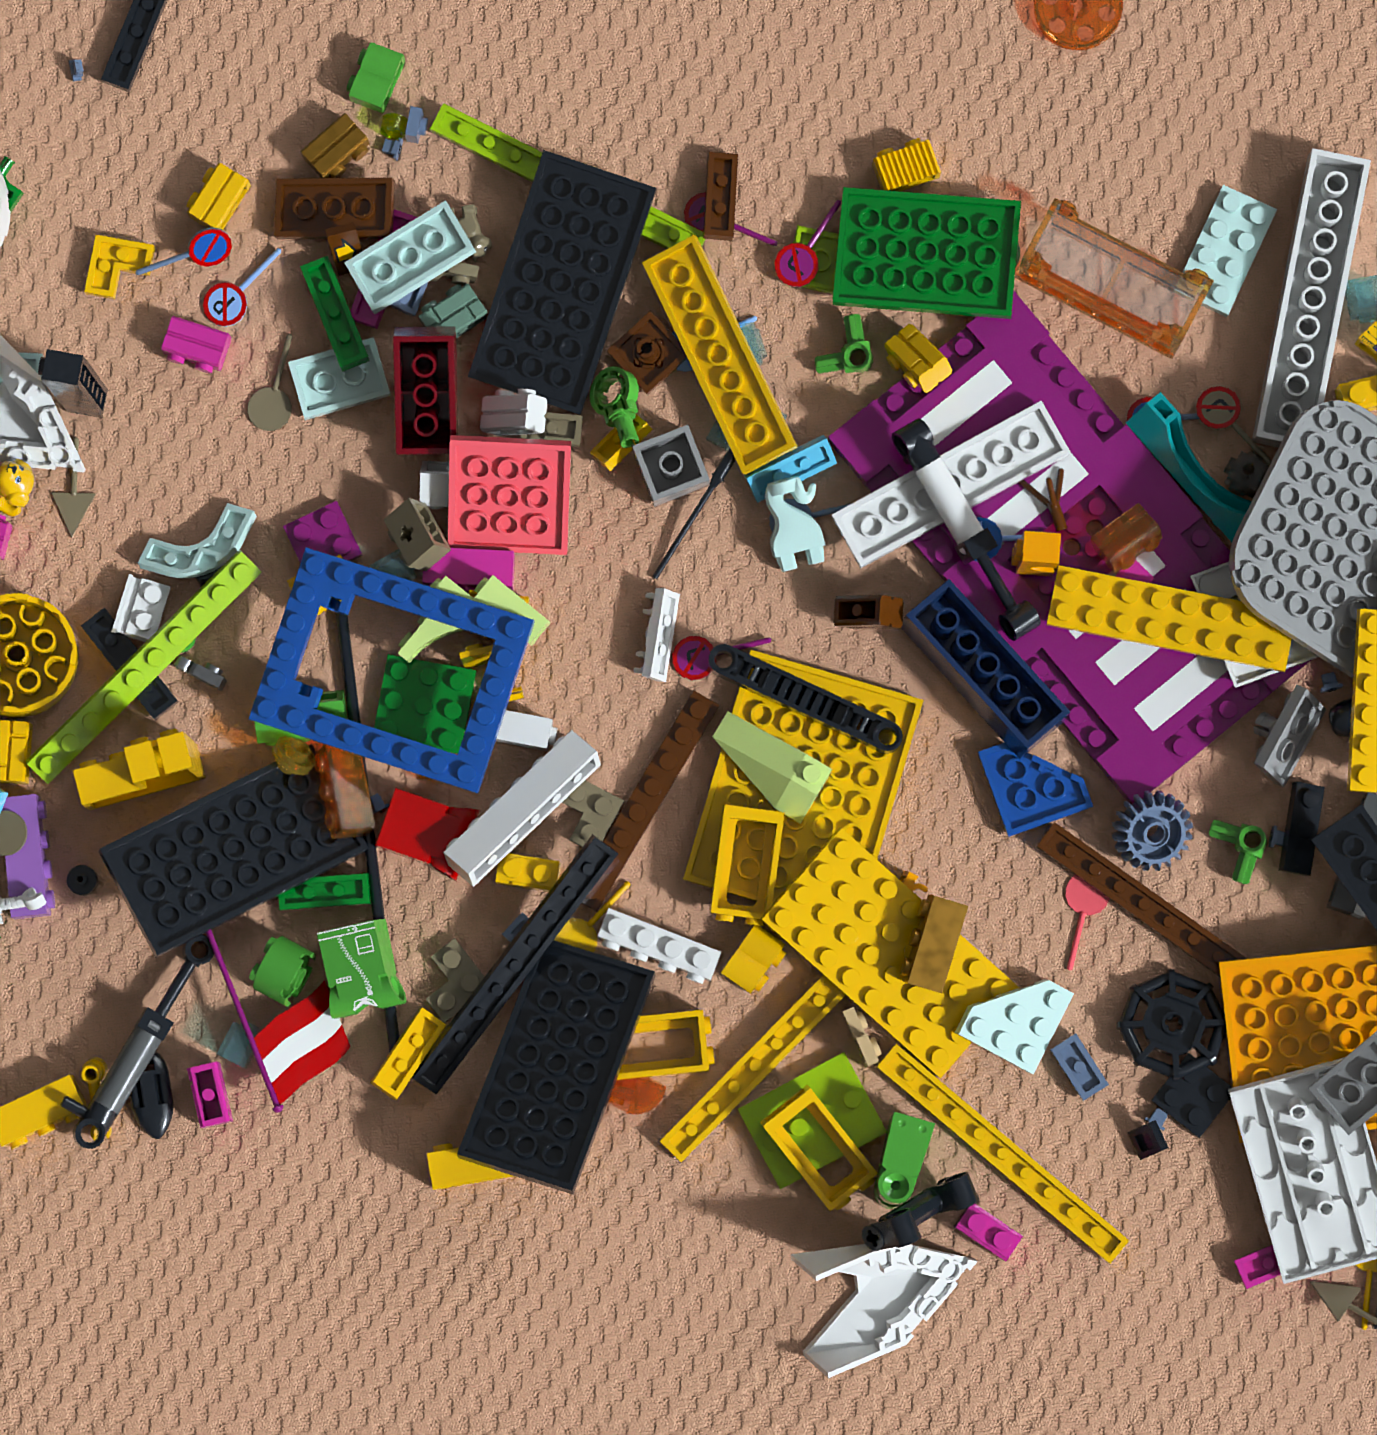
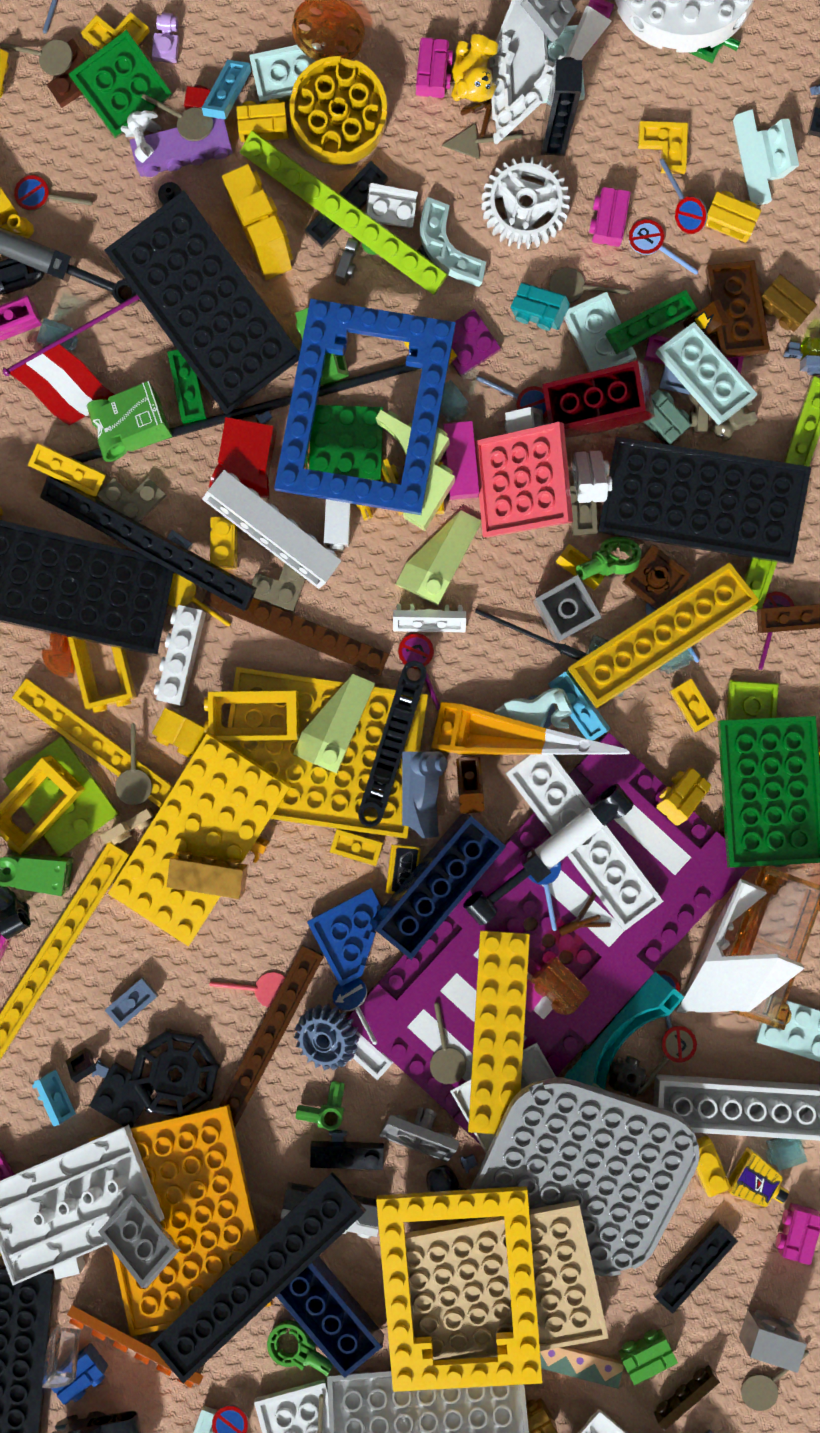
camera: 80 degrees right, 5 degrees up
(38, 474) = (488, 106): none -> reddish brown plant
(52, 1052) = (33, 193): none -> piece
(147, 149) = (764, 154): none -> light aqua plate
(182, 454) = (520, 219): none -> white gear
(282, 970) = (117, 360): bright green brick -> none
(293, 756) = (287, 341): clear yellow plate -> none
(295, 445) = (539, 306): none -> teal brick
(344, 792) = (264, 387): clear orange brick -> none
(405, 475) = (529, 397): none -> piece
(416, 535) = (480, 412): dark tan brick -> none
(588, 614) = (437, 561): none -> yellowish green wedge
(798, 263) = (748, 687): piece -> none
(807, 588) = (479, 732): none -> light orange plate
(809, 331) = (692, 705): none -> yellow plate
(811, 1024) = (133, 785): none -> dark tan piece
(855, 342) = (689, 743): bright green axle -> none
(865, 672) = (420, 791): none -> sand blue slope
(925, 764) = (356, 847): none -> yellow plate
(953, 709) = (401, 864): none -> slope
(1017, 1022) = (158, 948): light aqua plate -> none
(1036, 553) = (535, 916): light orange arch -> none
(1108, 793) = (350, 998): none -> blue piece
(1145, 327) = (734, 982): none -> white windscreen
(1186, 781) = (370, 1058): none -> white tile
(1187, 1176) = (54, 1098): none -> medium azure plate
(1204, 688) = (447, 1063): none -> dark tan piece

